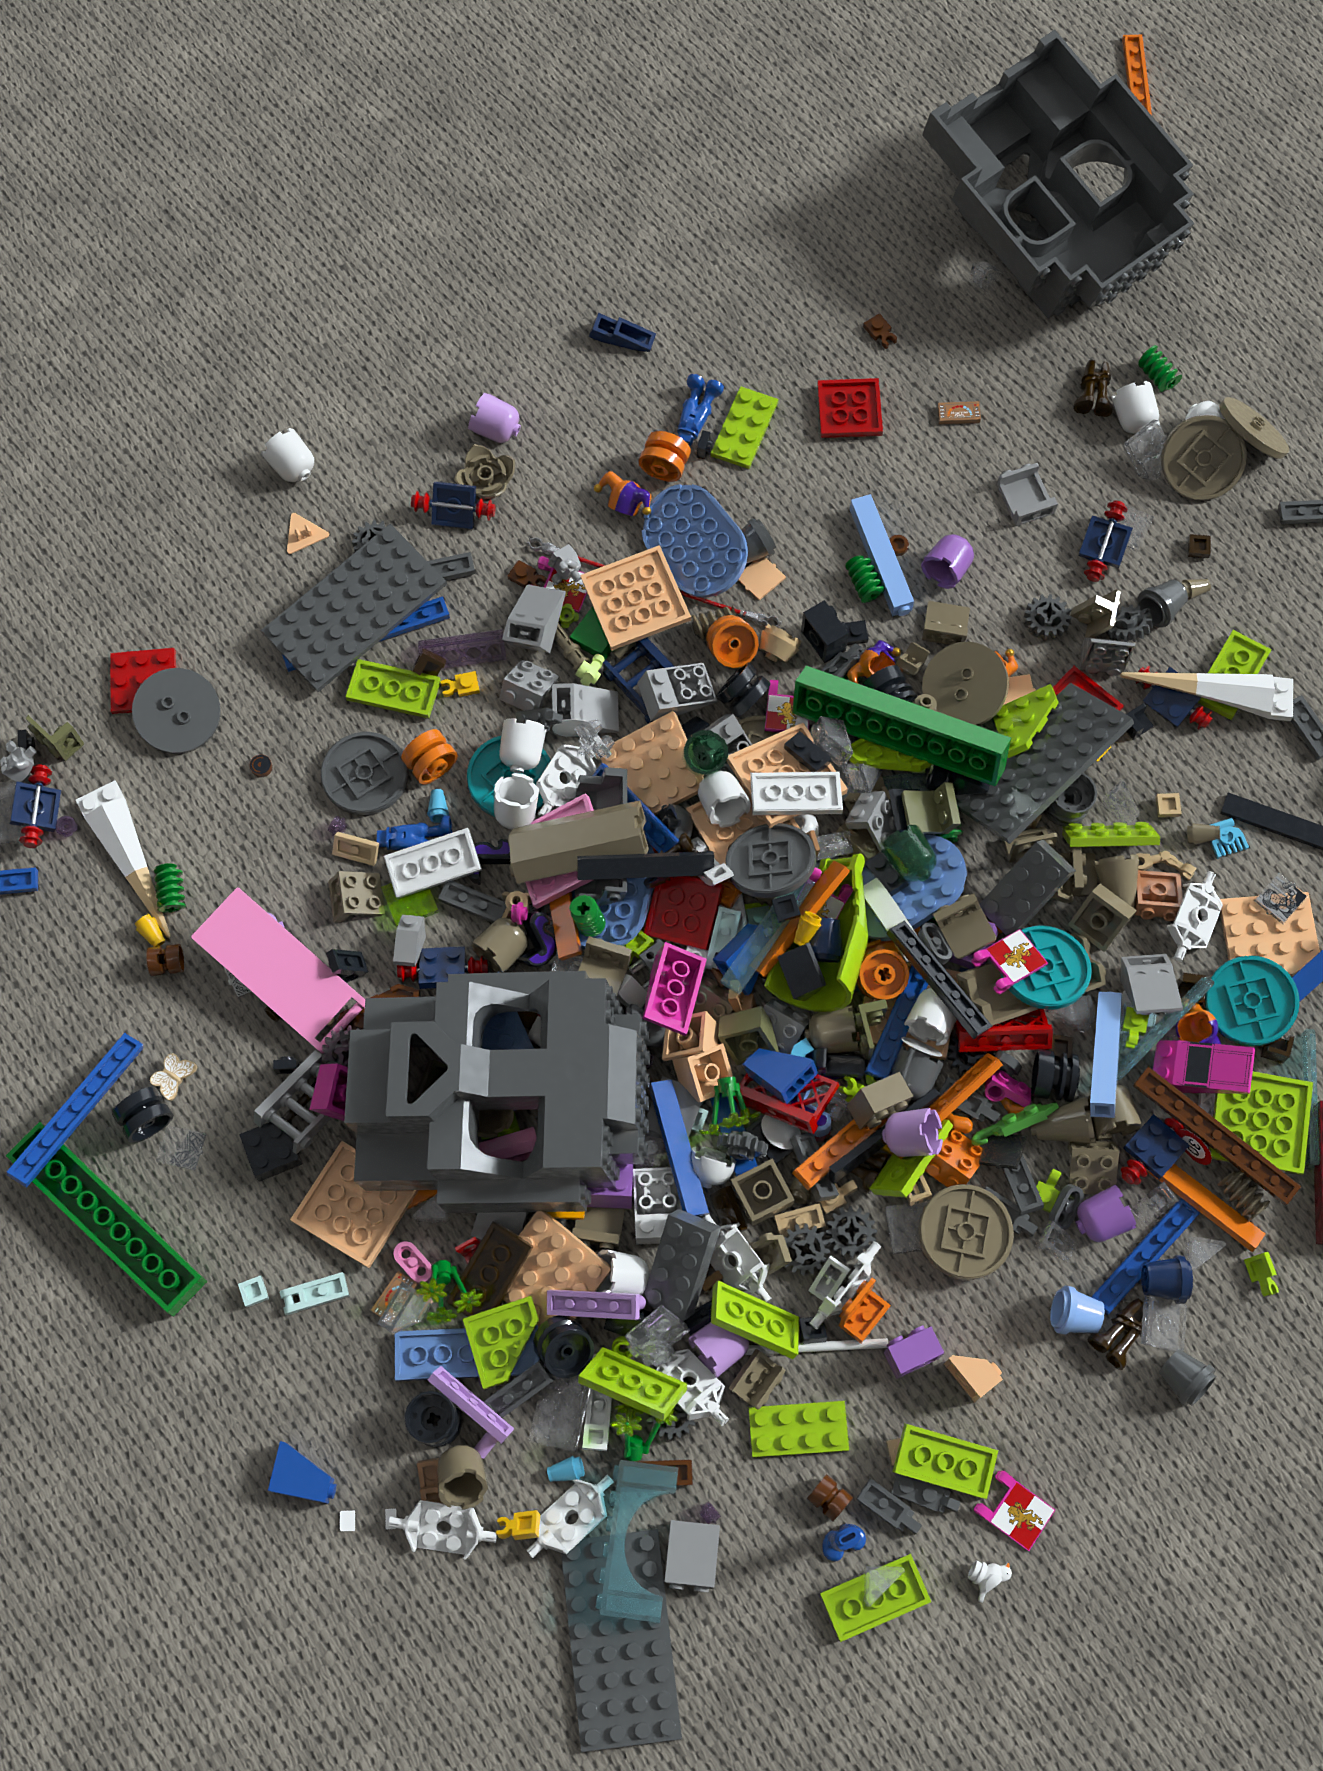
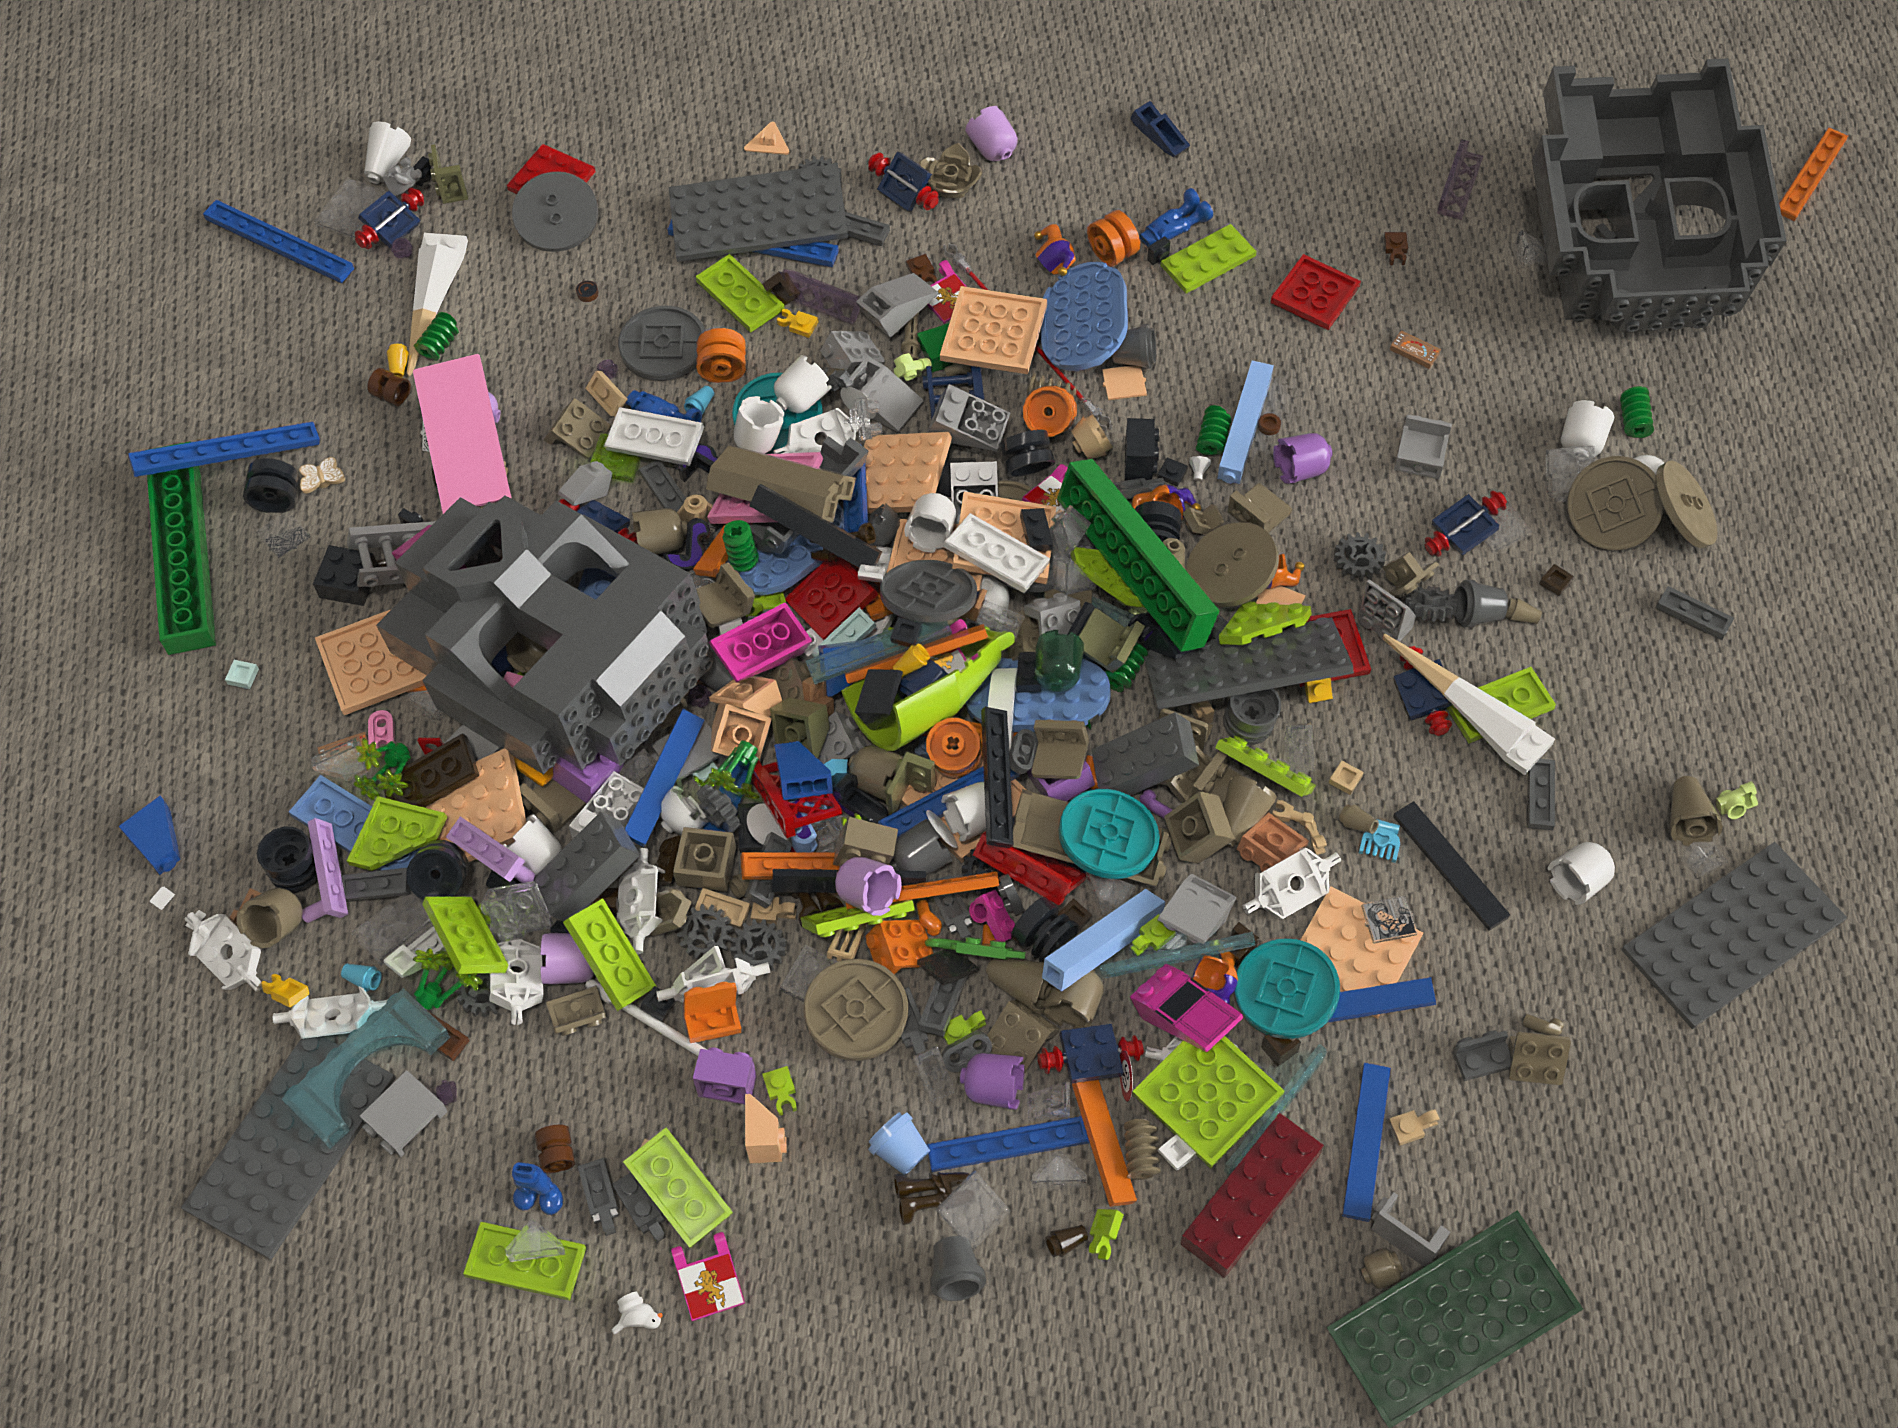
camera: 35 degrees right, 10 degrees down
(289, 456) = (801, 73): white cylinder -> none
(315, 1293) = (286, 706): light aqua plate -> none
(347, 964) = (524, 474): black plate -> none
(519, 913) = (686, 511): dark pink plate -> none
(566, 564) = (959, 273): light grey piece -> none
(567, 609) = (929, 312): lime plate -> none
(712, 746) = (936, 464): clear green cylinder -> none
(798, 1429) = (579, 1078): lime plate -> none
(873, 614) = (1199, 465): none -> white rock
(883, 246) = (1454, 178): none -> fence
(950, 1328) = (780, 1086): none -> lime plate
(1014, 959) = (1081, 805): flag -> none
(1052, 919) = (1149, 801): none -> medium lavender arm
(1091, 381) = (1565, 390): dark brown piece -> none
(1141, 722) = (1374, 690): black panel -> none
(1168, 1279) = (1006, 1171): dark blue piece -> none
(1217, 1136) = (1150, 1075): reddish brown plate -> none
(1241, 1298) = (1065, 1240): none -> dark brown cone

